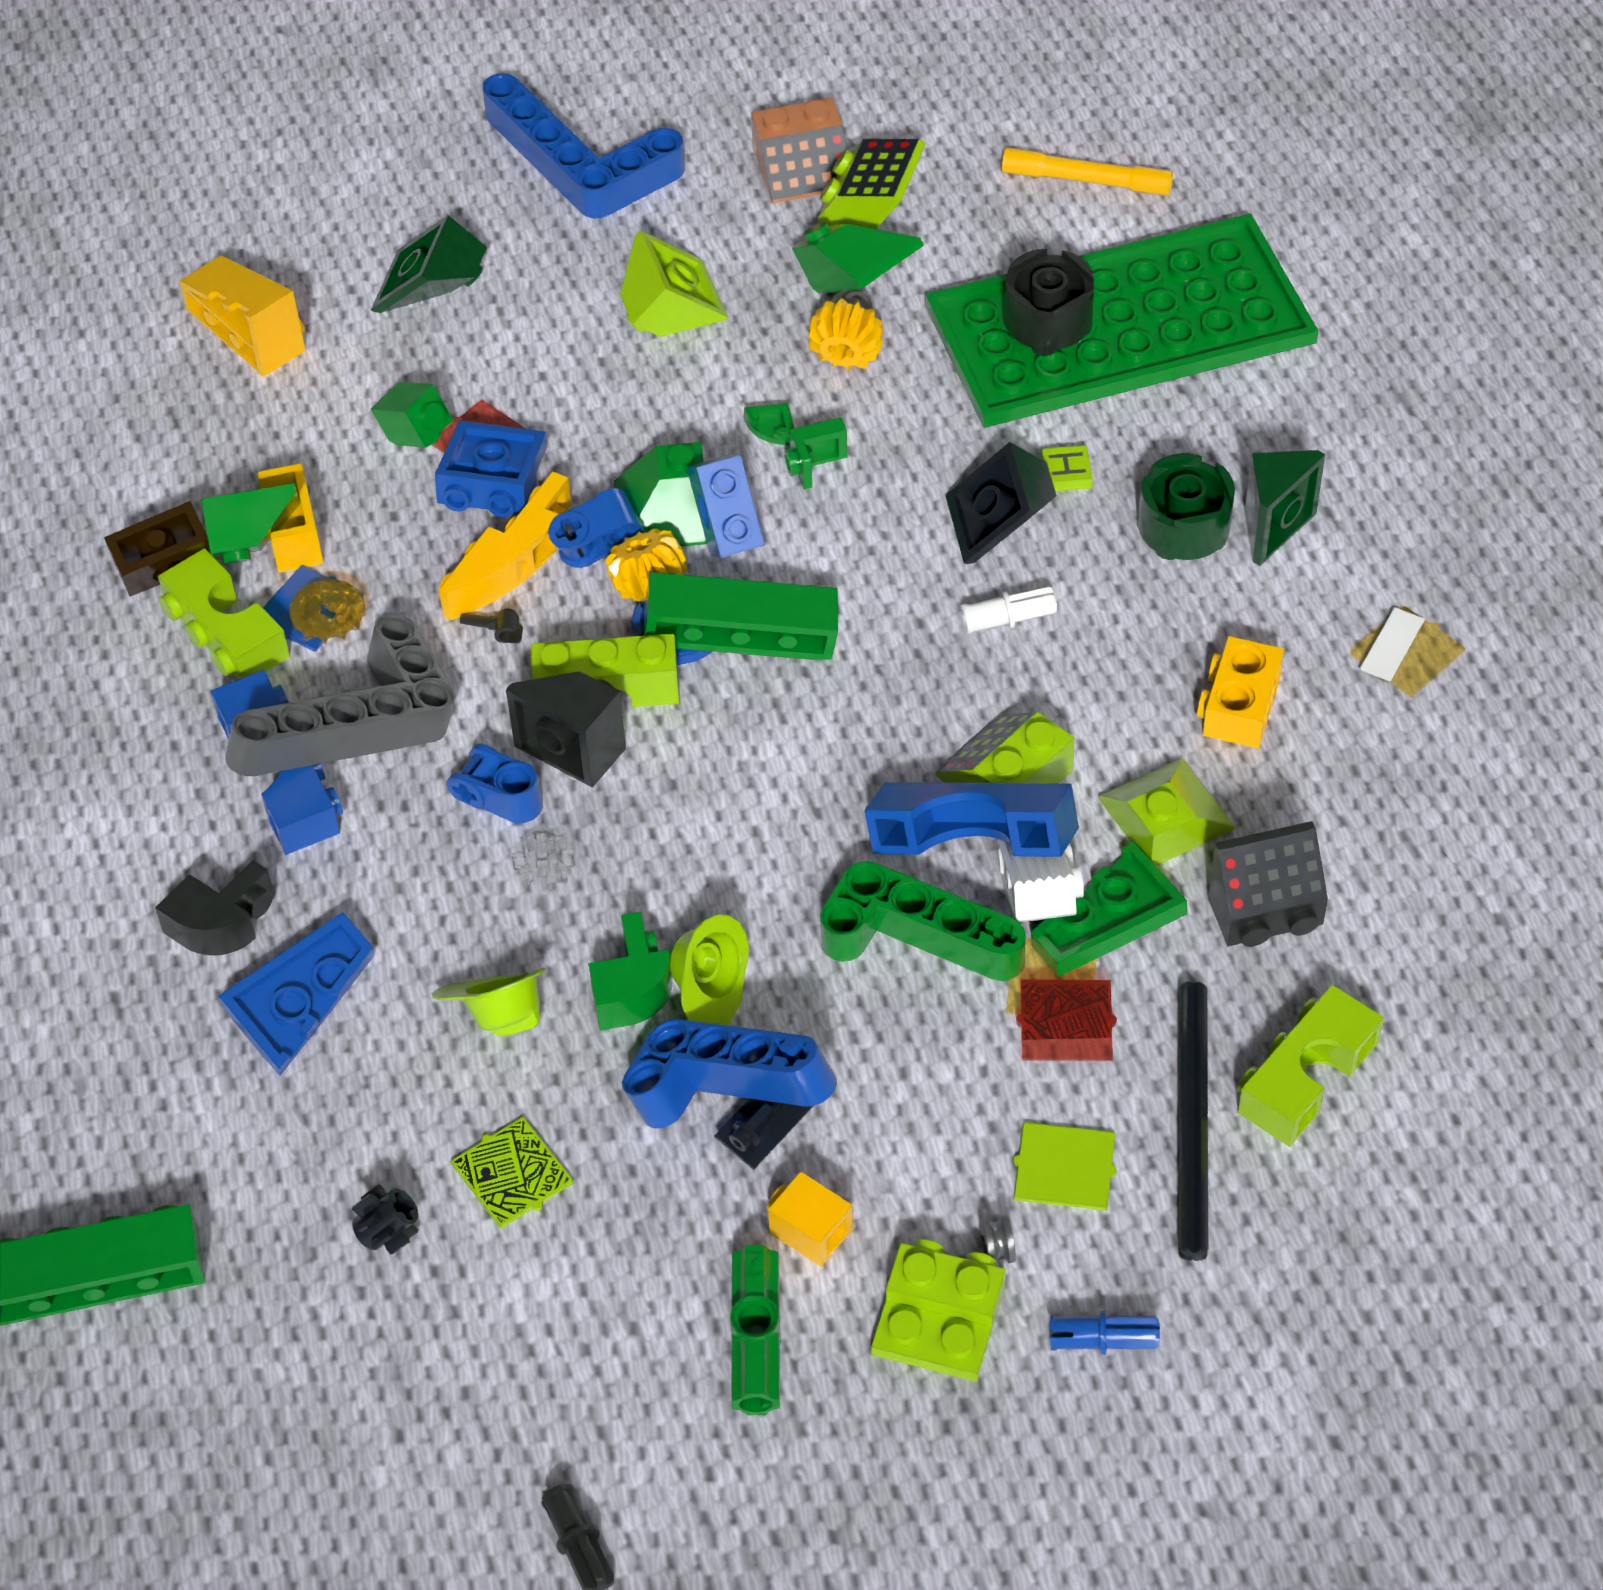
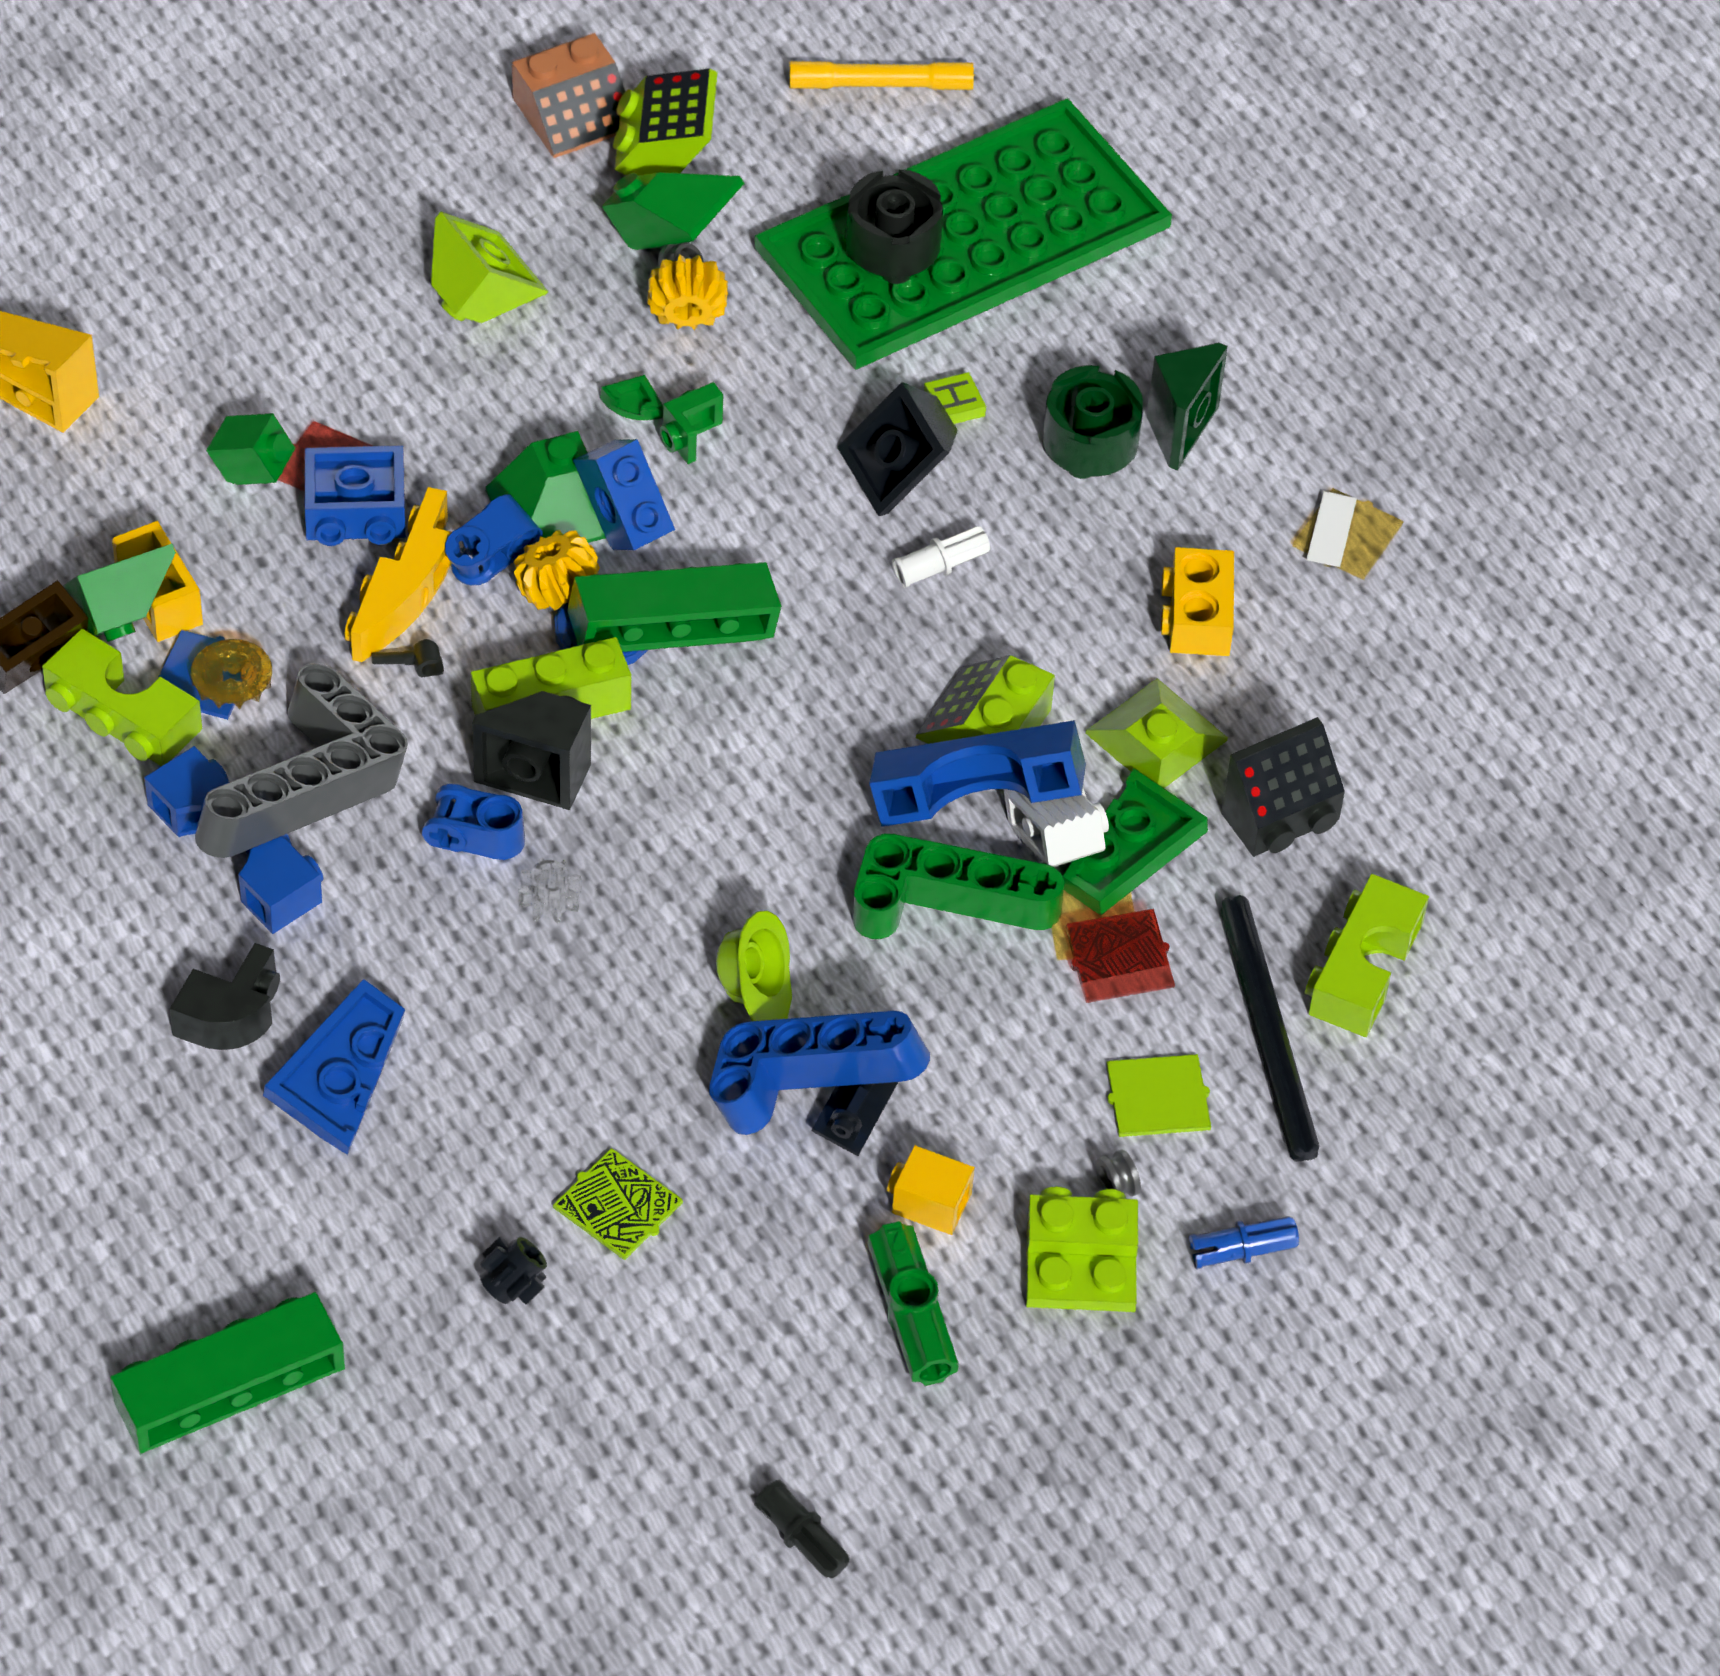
camera: 20 degrees left, 0 degrees up
(431, 266) = (209, 283): dark green slope -> none
(499, 1002) = (554, 1040): lime piece -> none
(588, 182) = (349, 163): blue beam -> none
(631, 986) = (684, 997): green brick -> none

